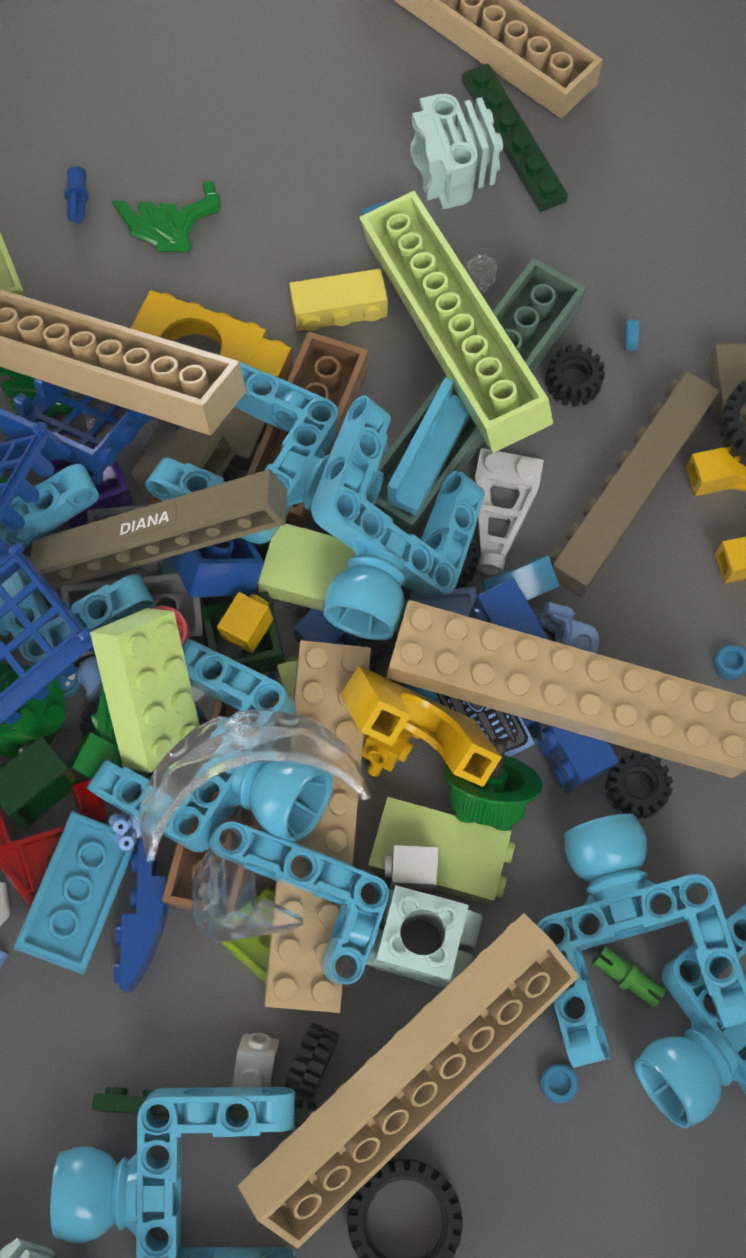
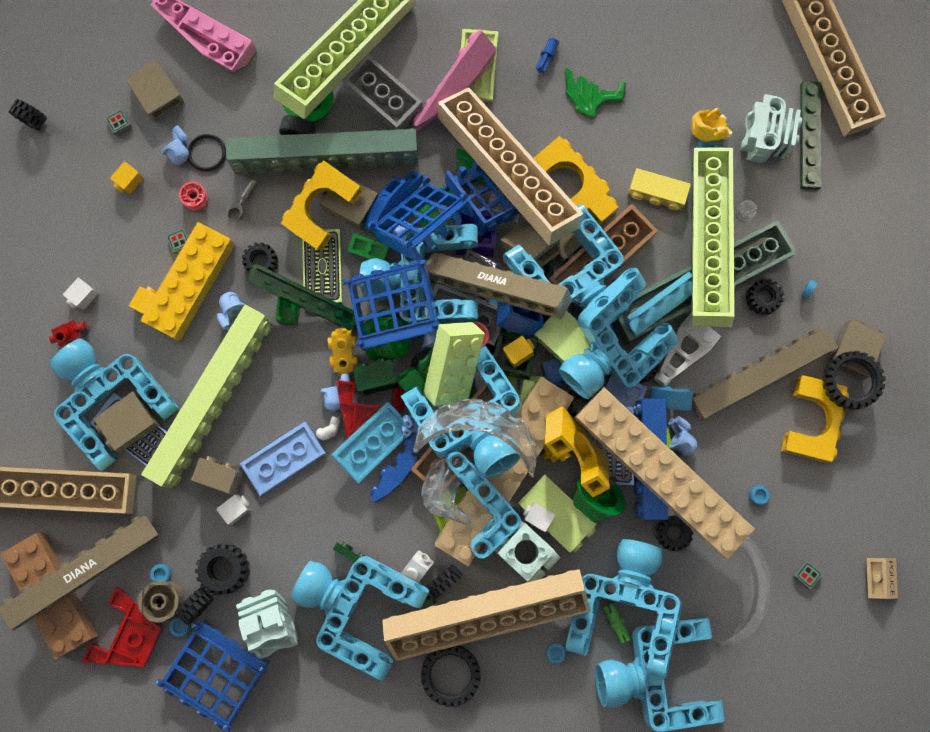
camera: 30 degrees right, 10 degrees up
(366, 184) = (710, 126): none -> yellow hair

